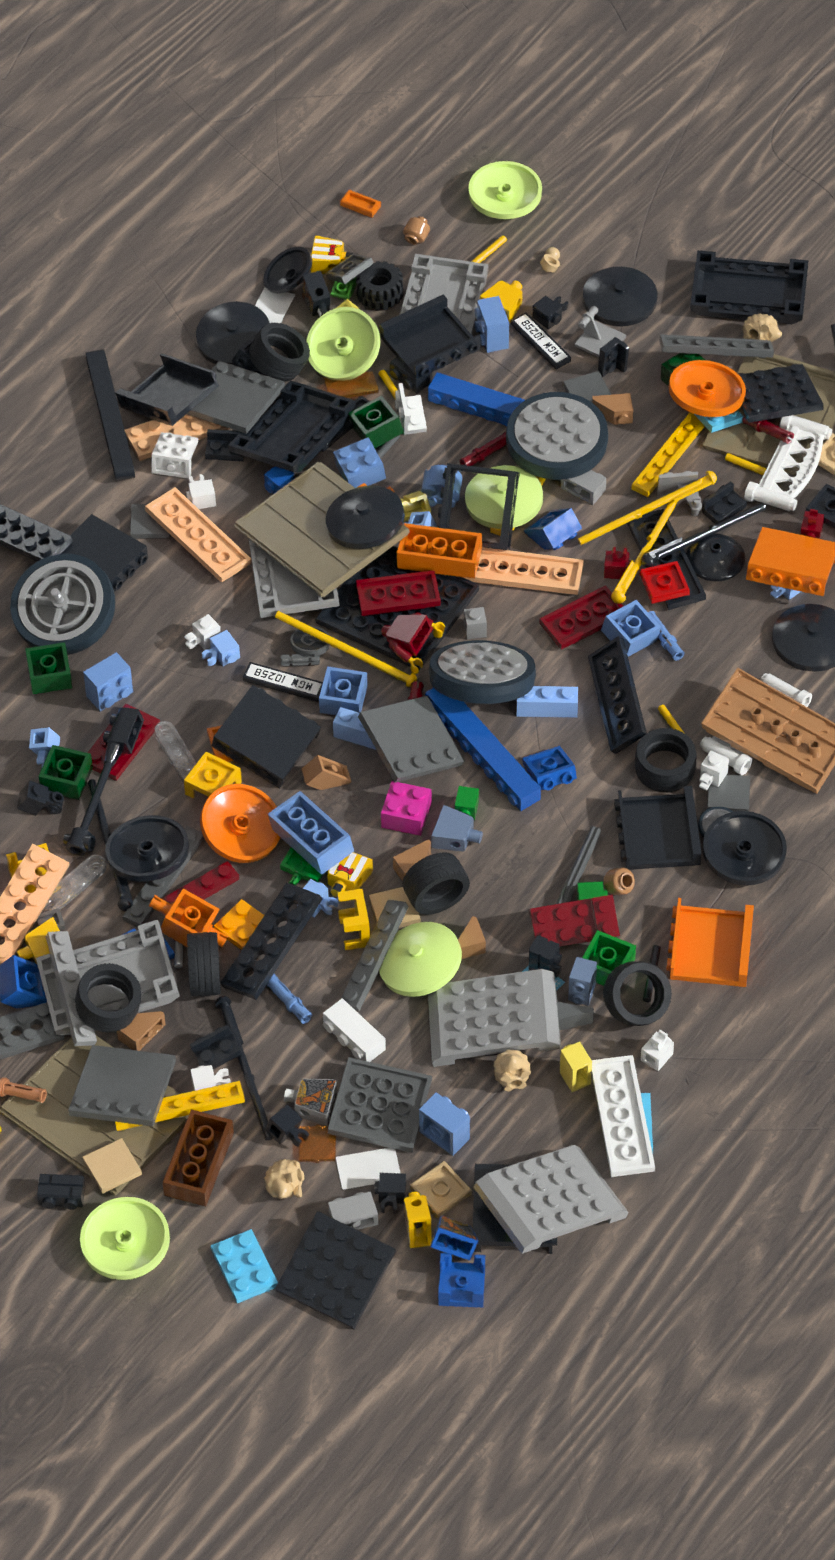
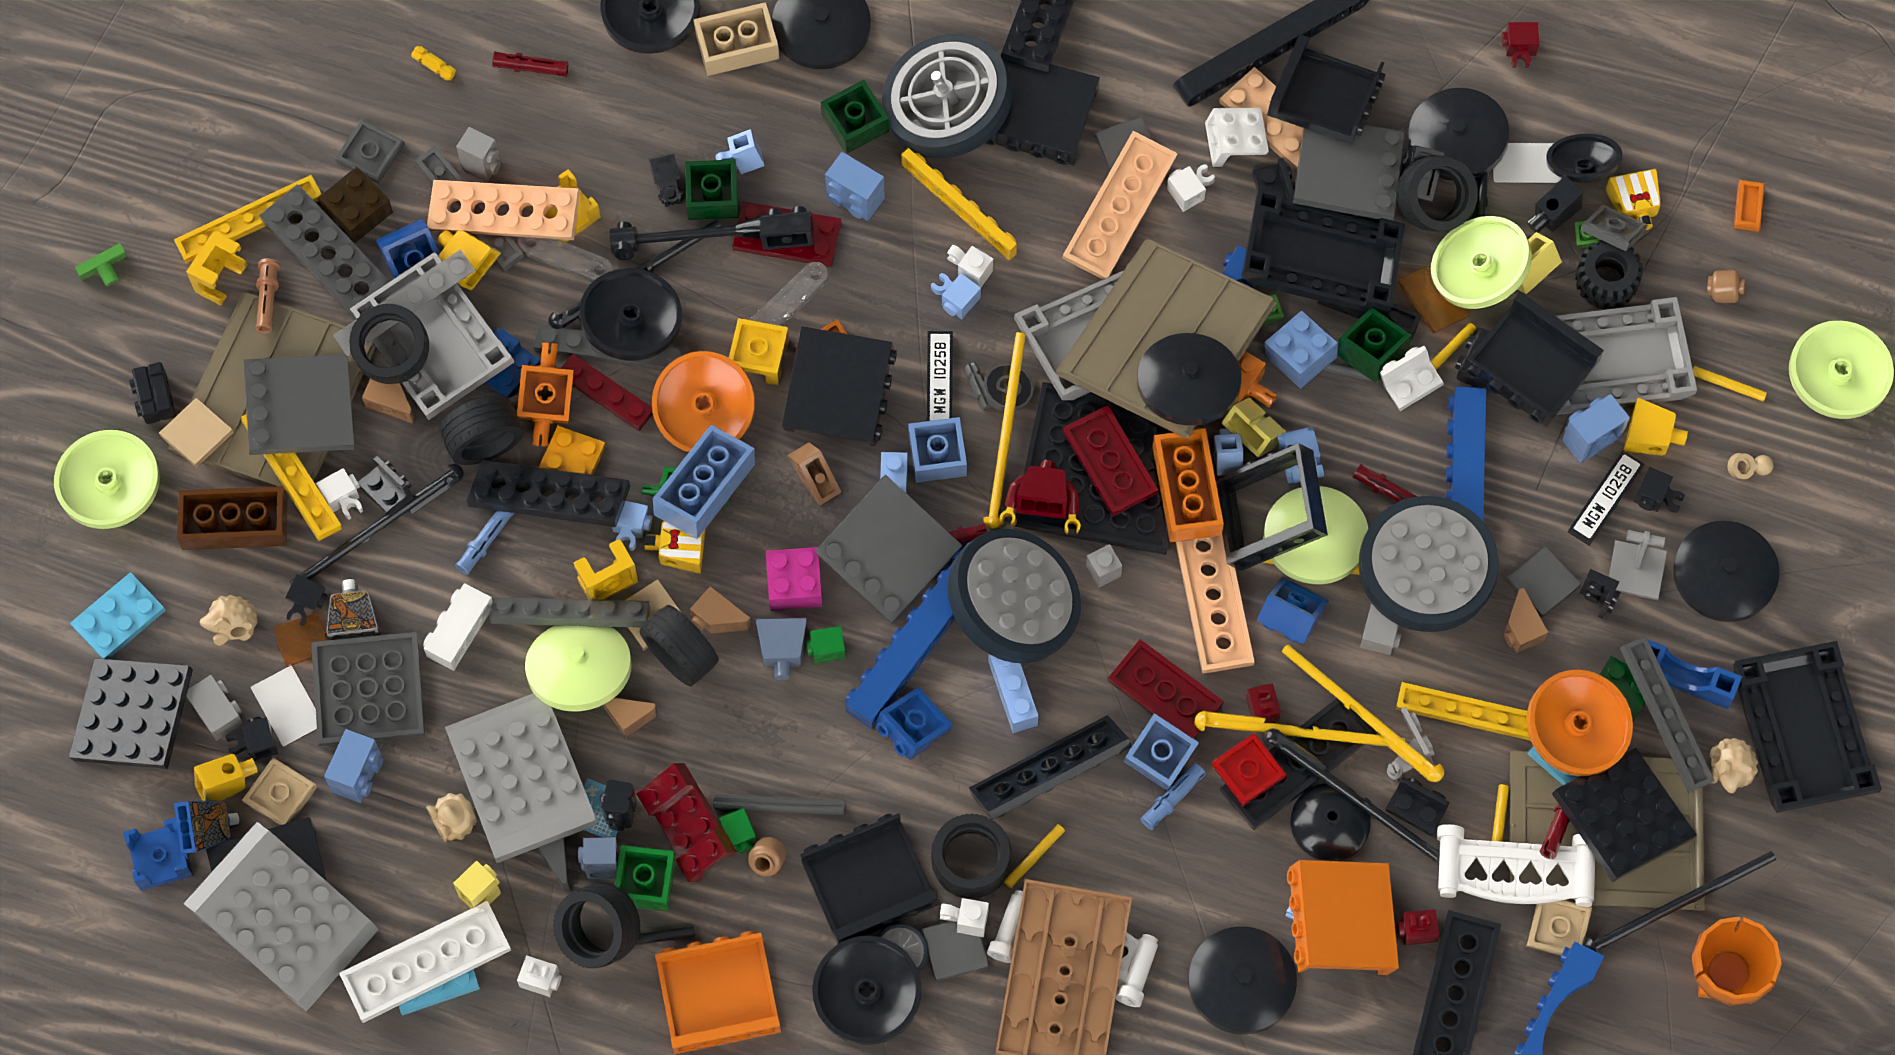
camera: 70 degrees right, 15 degrees up
(148, 629) = (965, 209): none -> yellow plate
(179, 279) = (1521, 41): none -> dark red brick
(702, 322) = (1708, 684): none -> blue arch

